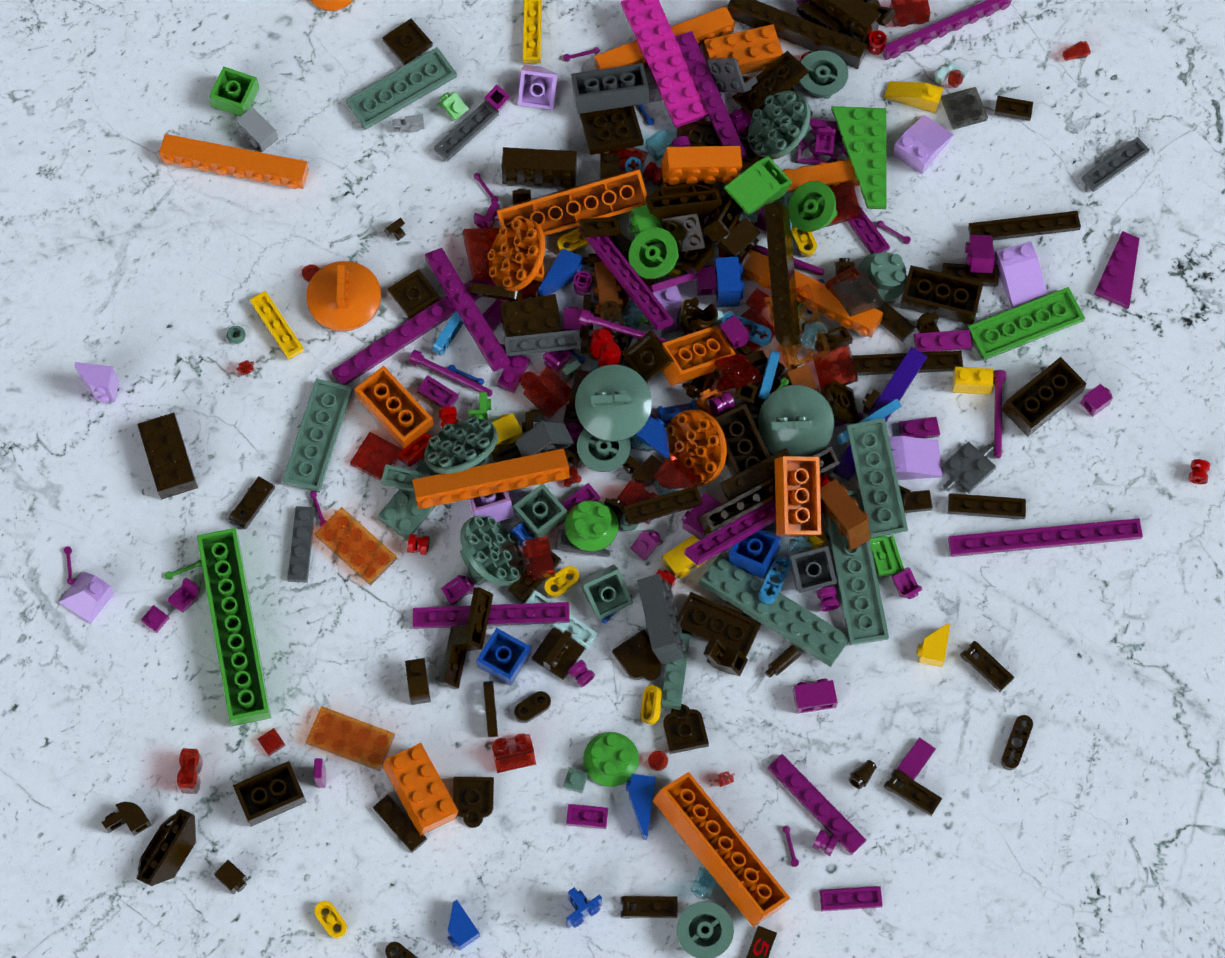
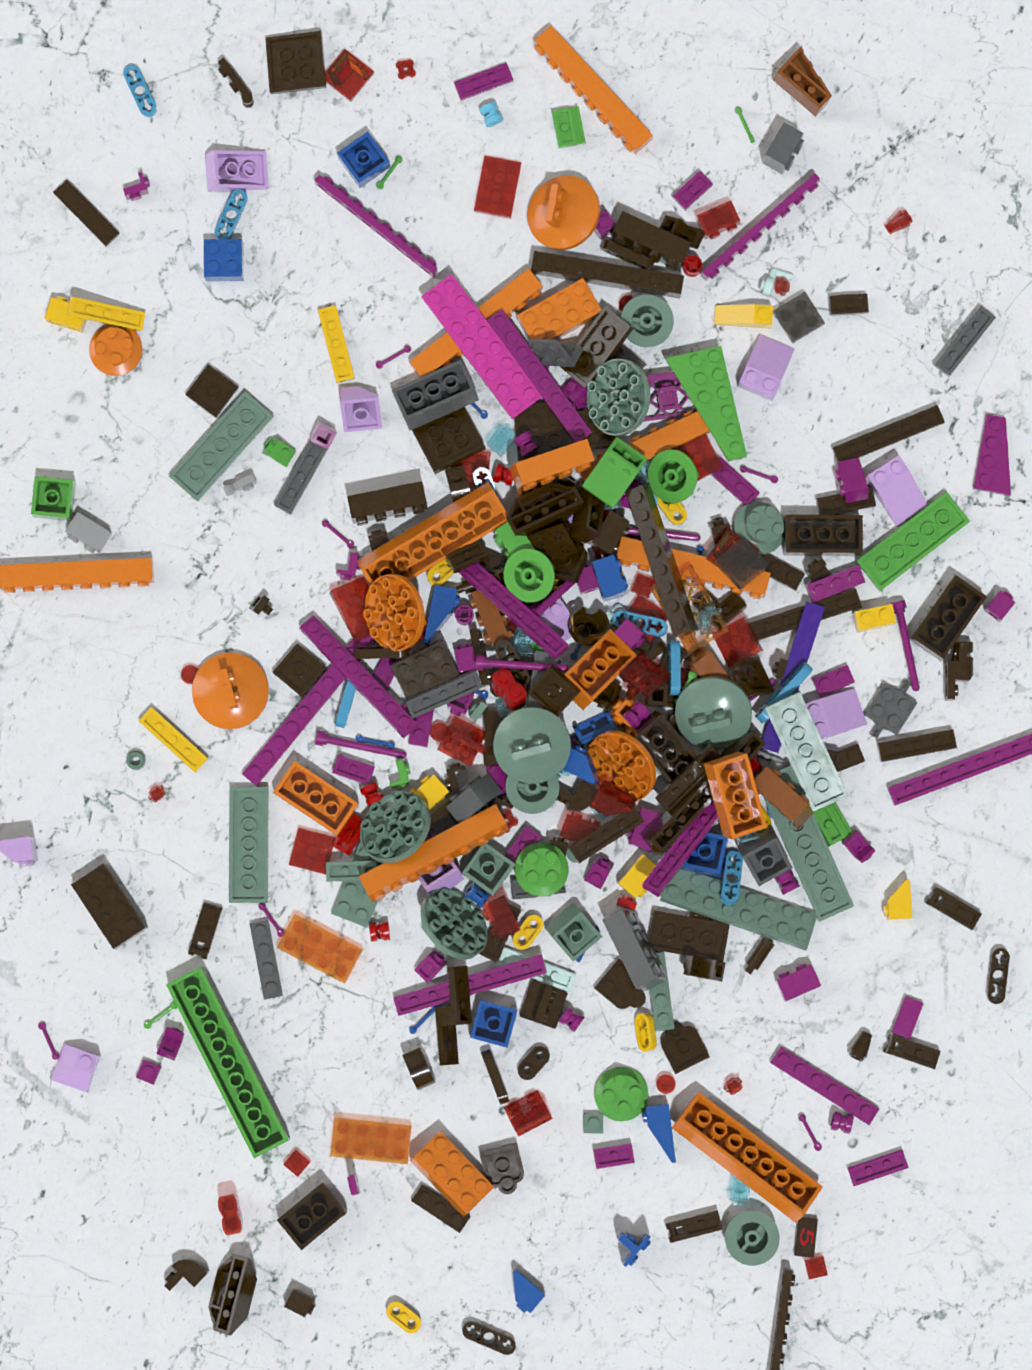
camera: 15 degrees left, 15 degrees up
(423, 645) = (413, 1029): none -> blue hinge
(1044, 446) = (958, 670): none -> dark brown plate

